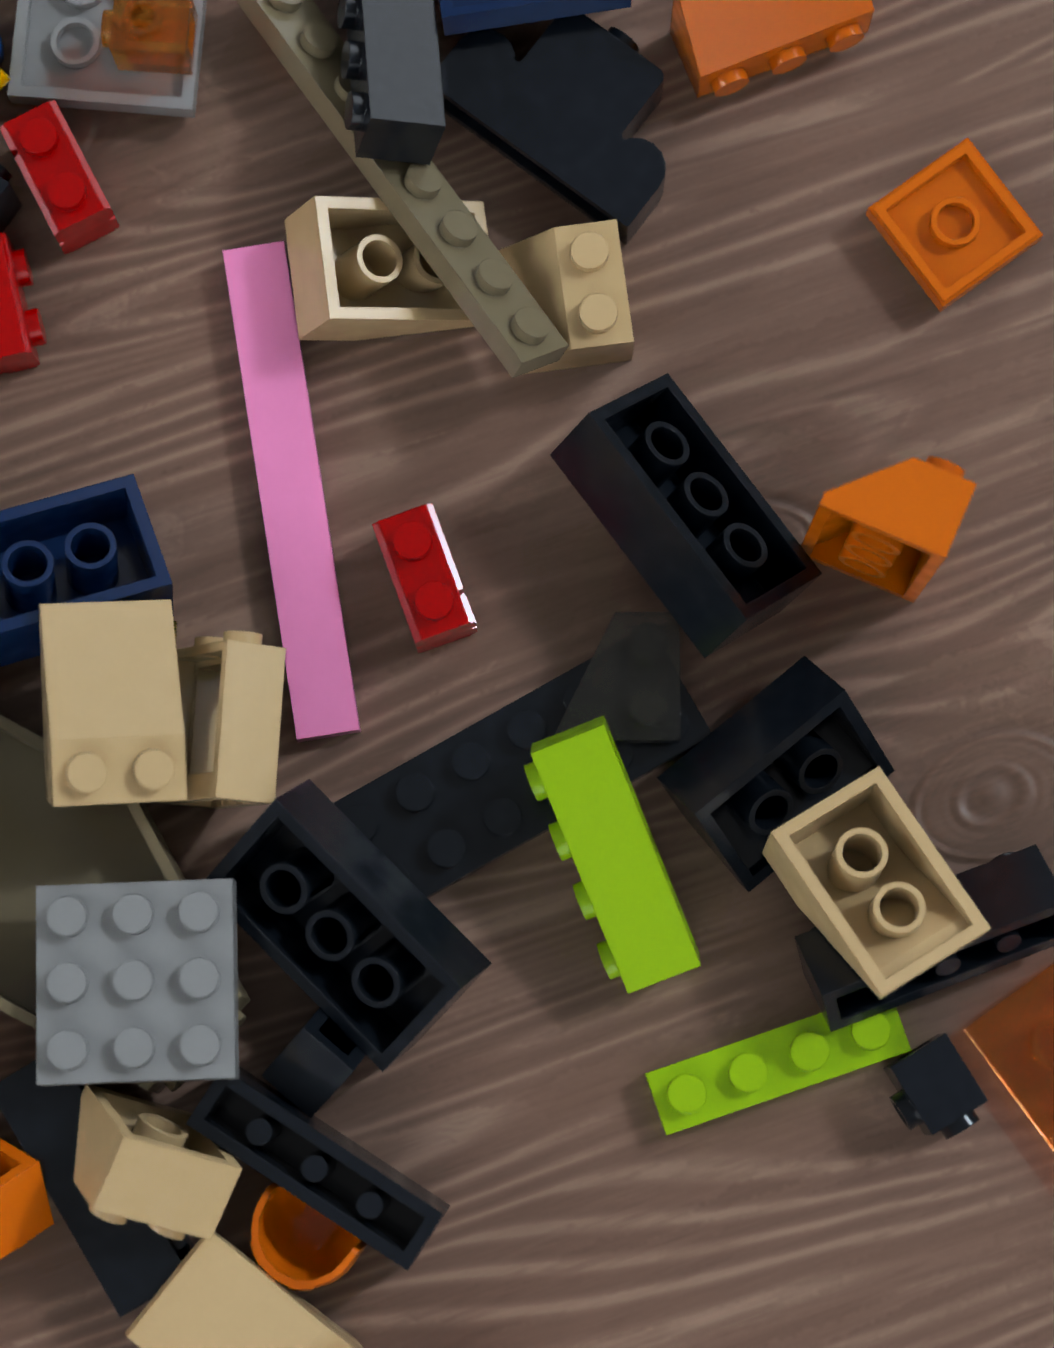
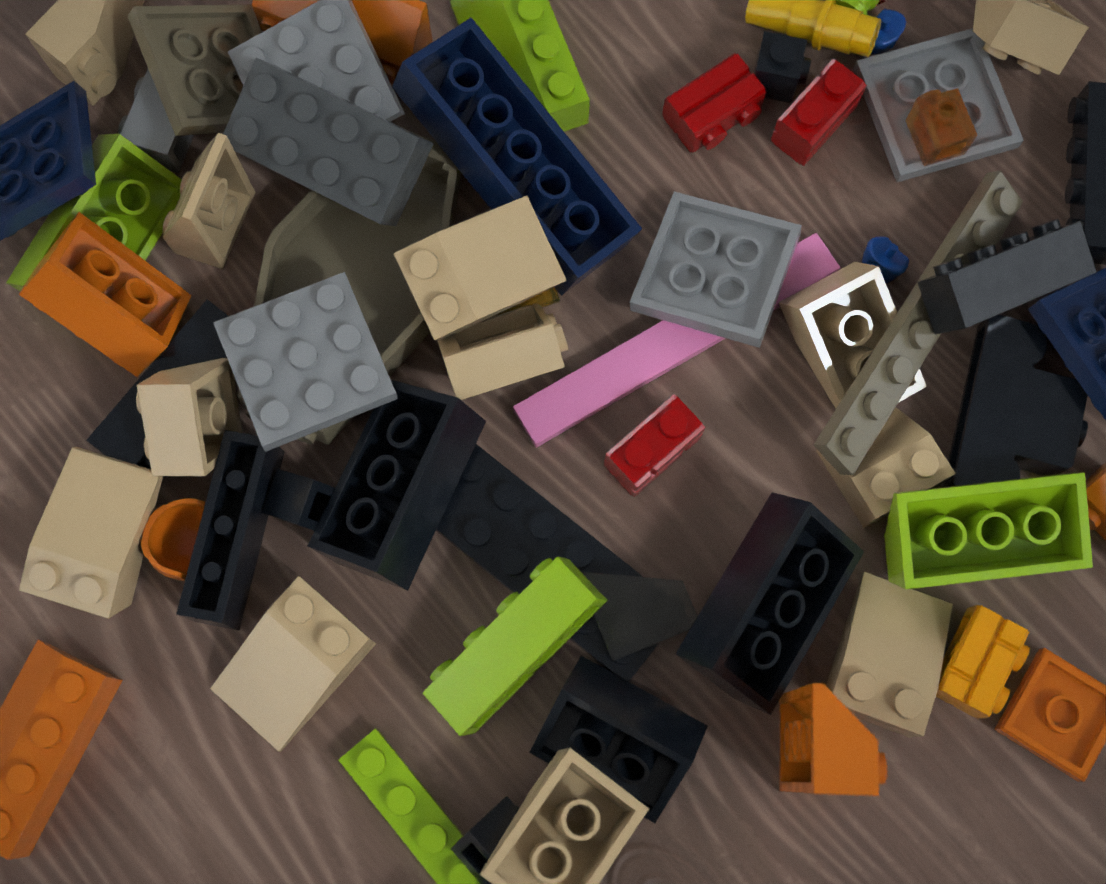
camera: 65 degrees right, 5 degrees down
(221, 401) = (716, 269): none -> light grey plate
(294, 179) = (885, 254): none -> blue piece
(522, 1152) = (291, 663): none -> tan slope
(705, 213) = (988, 531): none -> lime slope
(803, 396) = (891, 655): none -> tan slope
(855, 293) = (981, 661): none -> light orange brick

